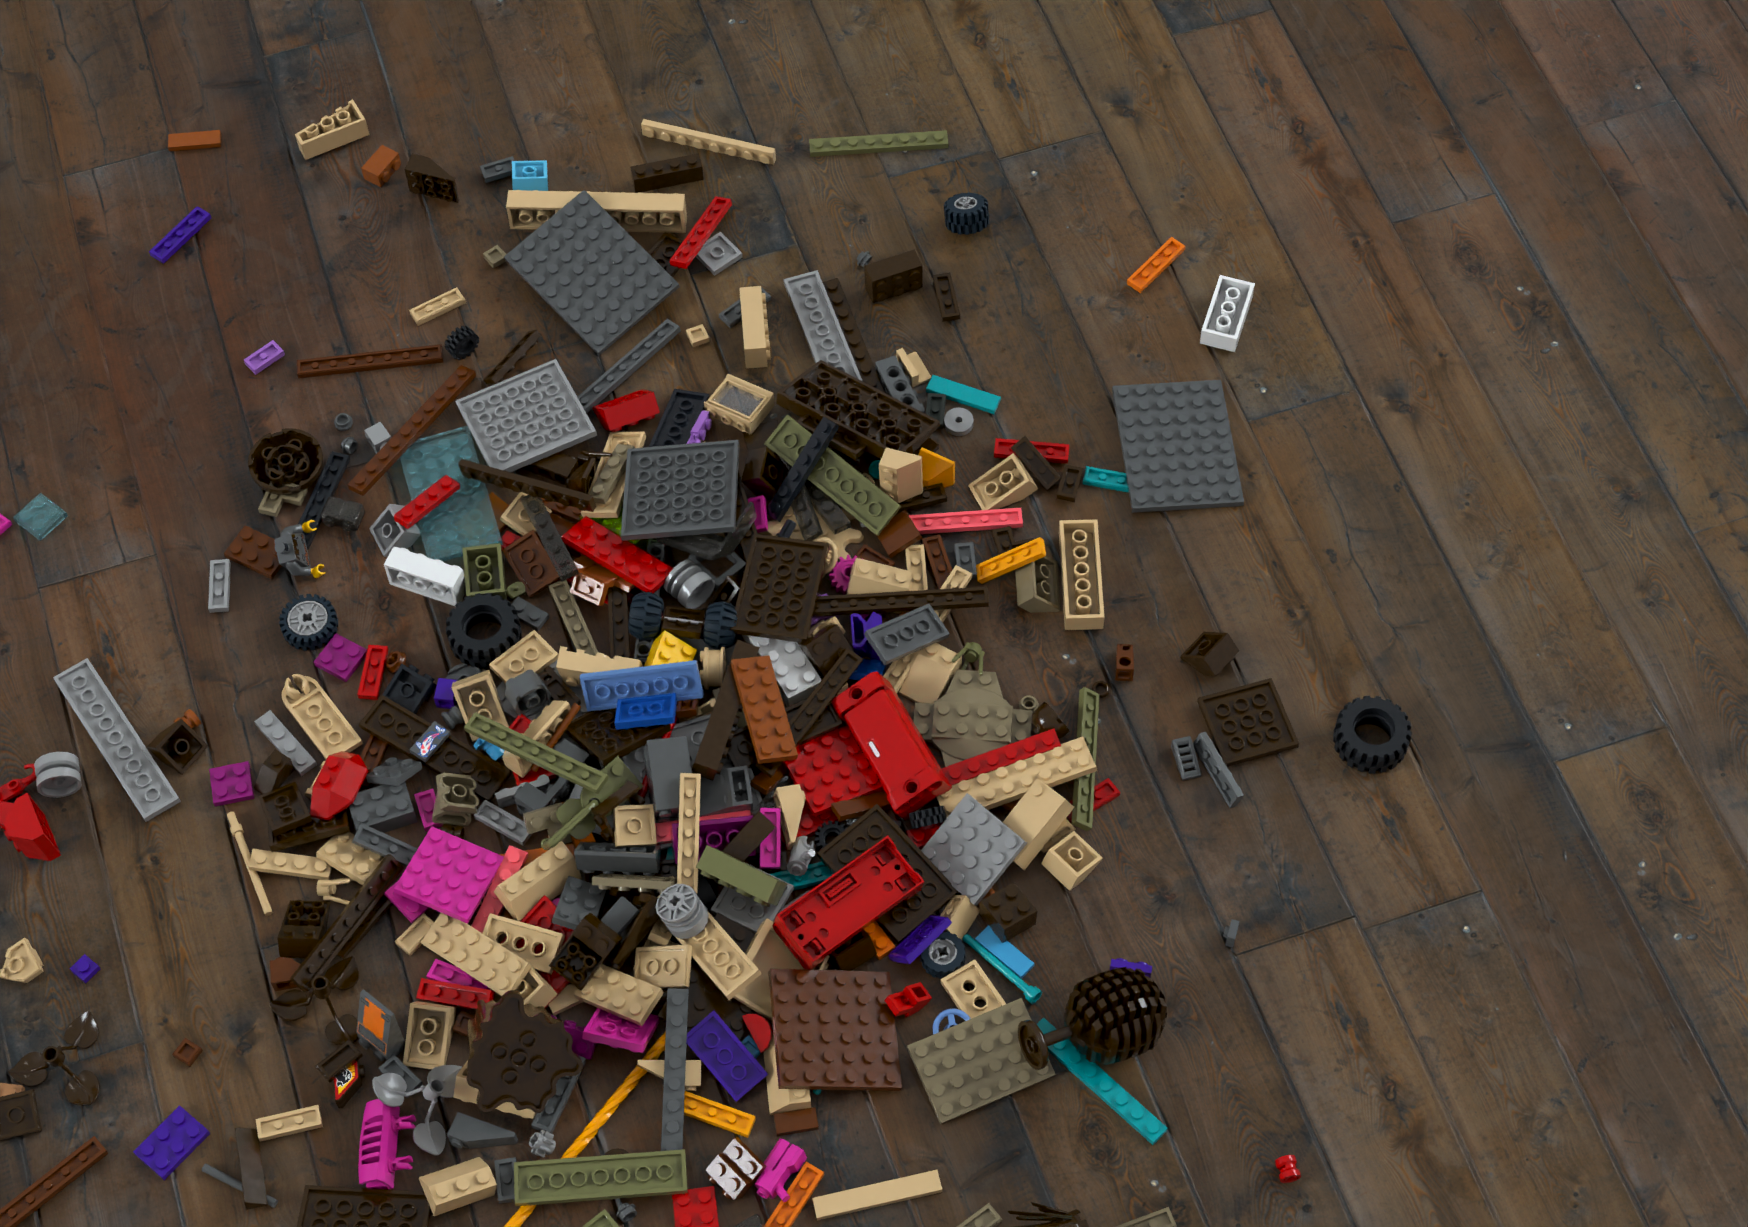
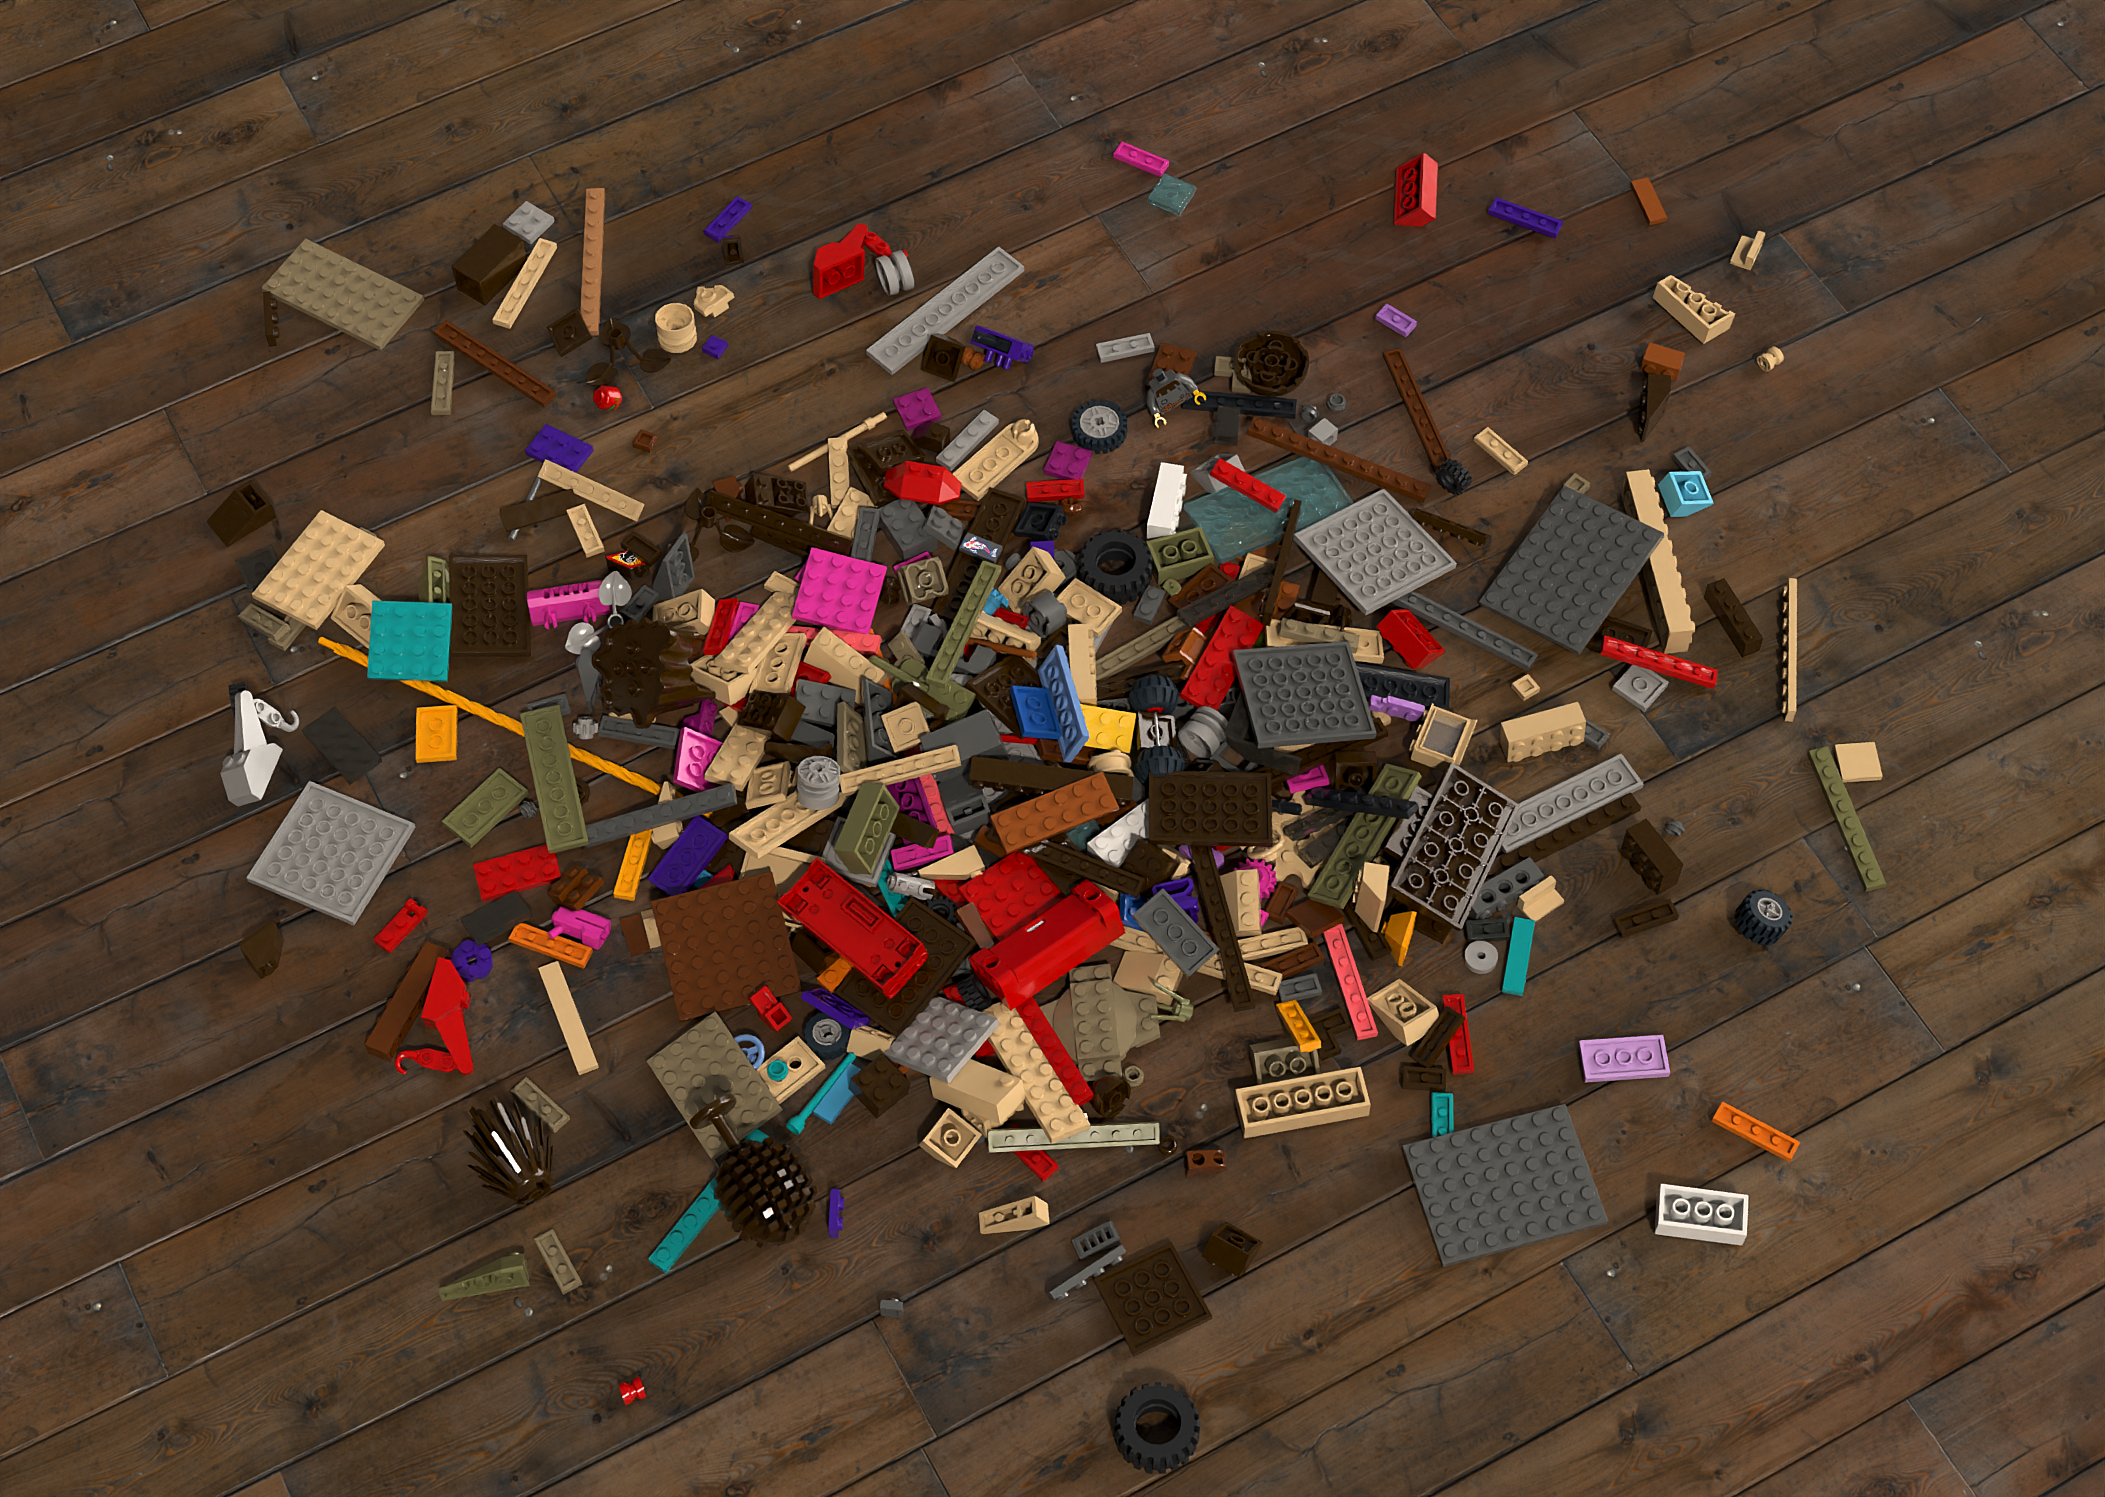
camera: 80 degrees right, 0 degrees up
(53, 999) = (676, 327): none -> tan wheel
(117, 313) = (1416, 191): none -> red slope
(122, 1081) = (607, 398): none -> red head
(186, 688) = (1003, 345): none -> dark purple piece
(238, 1112) = (591, 490): none -> tan plate
(278, 80) = (1747, 251): none -> tan panel
(403, 89) = (1769, 359): none -> tan wheel
(458, 1185) = (537, 668): tan slope -> none
(827, 123) = (1858, 762): none -> tan tile
(977, 999) = (777, 1070): none -> teal plate
(1075, 339) = (1624, 1058): none -> lavender plate
(1155, 821) = (1015, 1216): none -> tan slope

